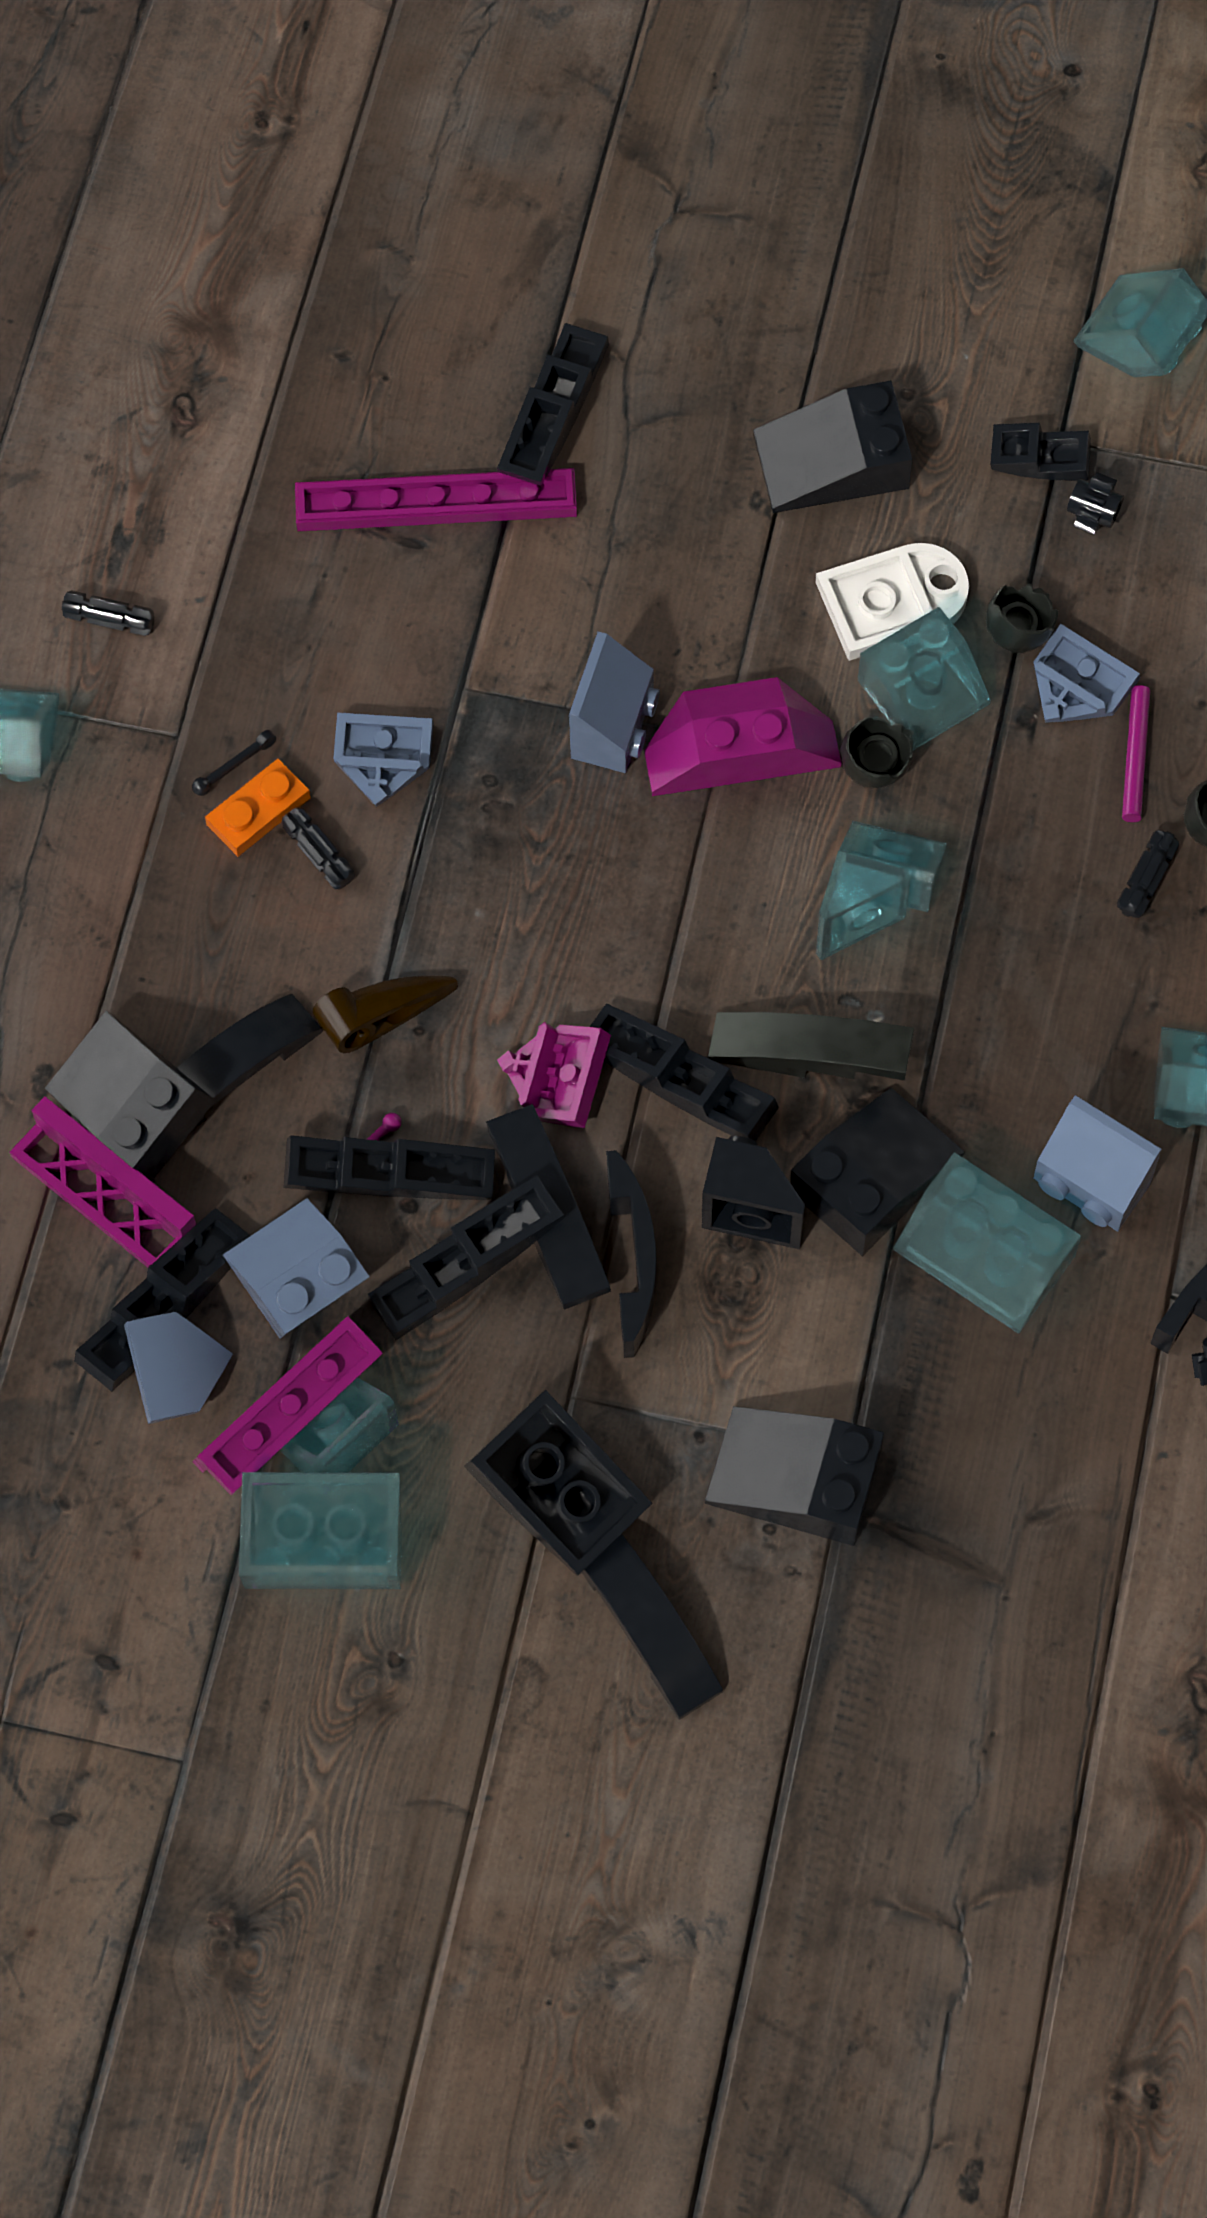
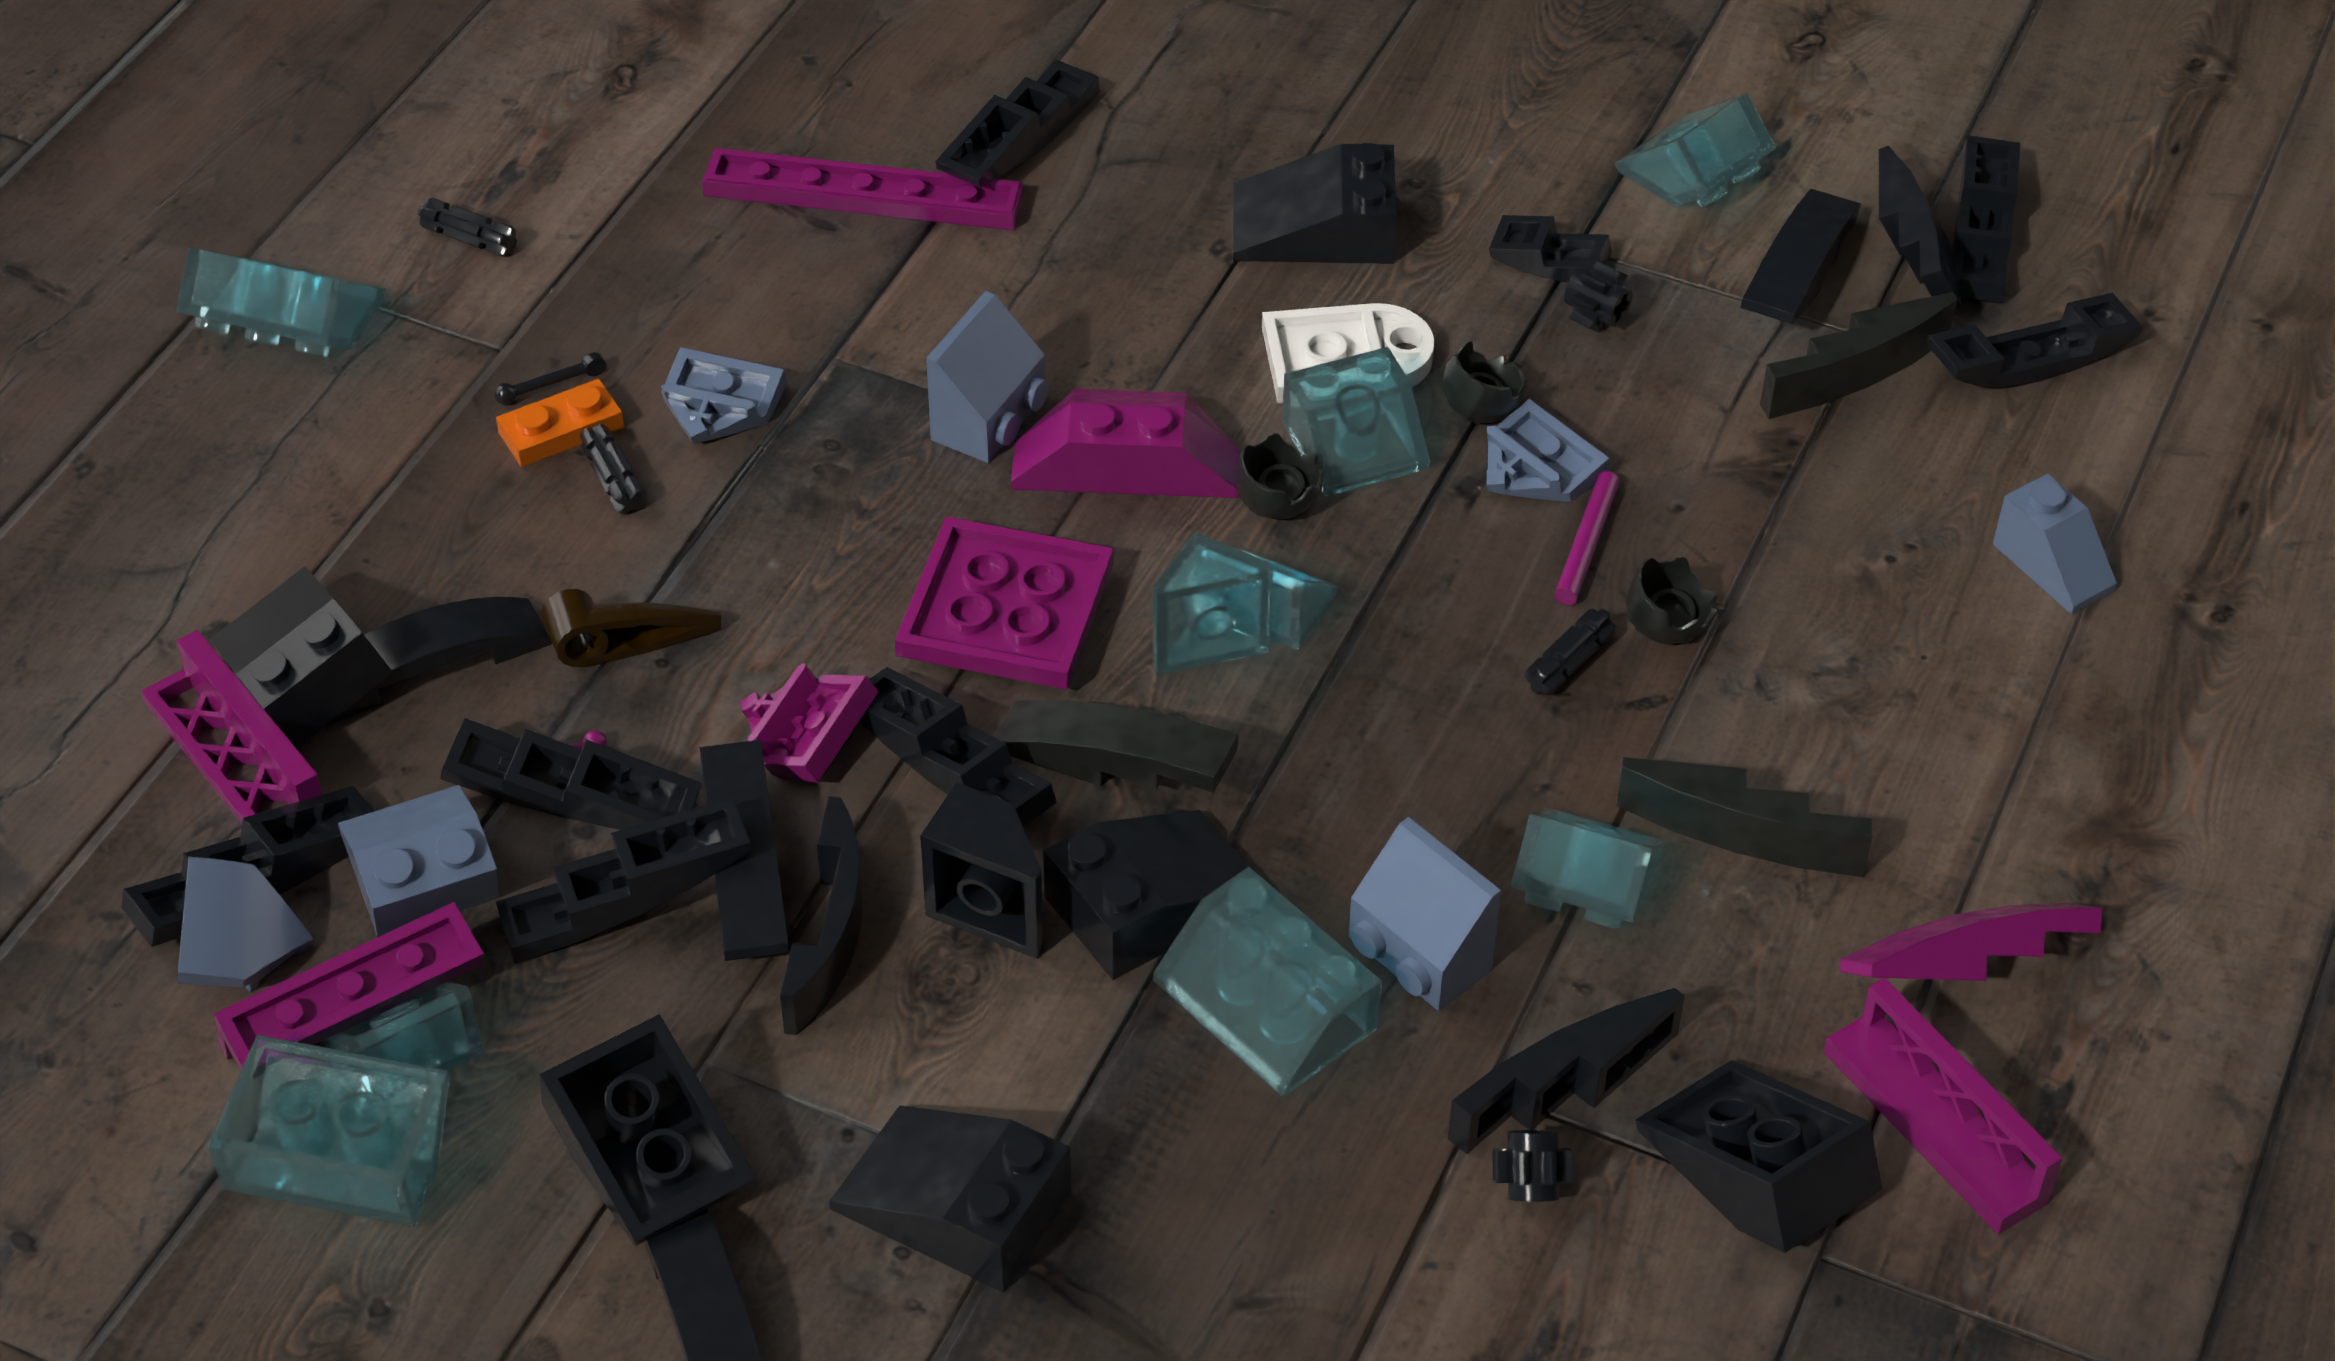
camera: 10 degrees right, 20 degrees down
(684, 920) = (1005, 602): none -> magenta plate

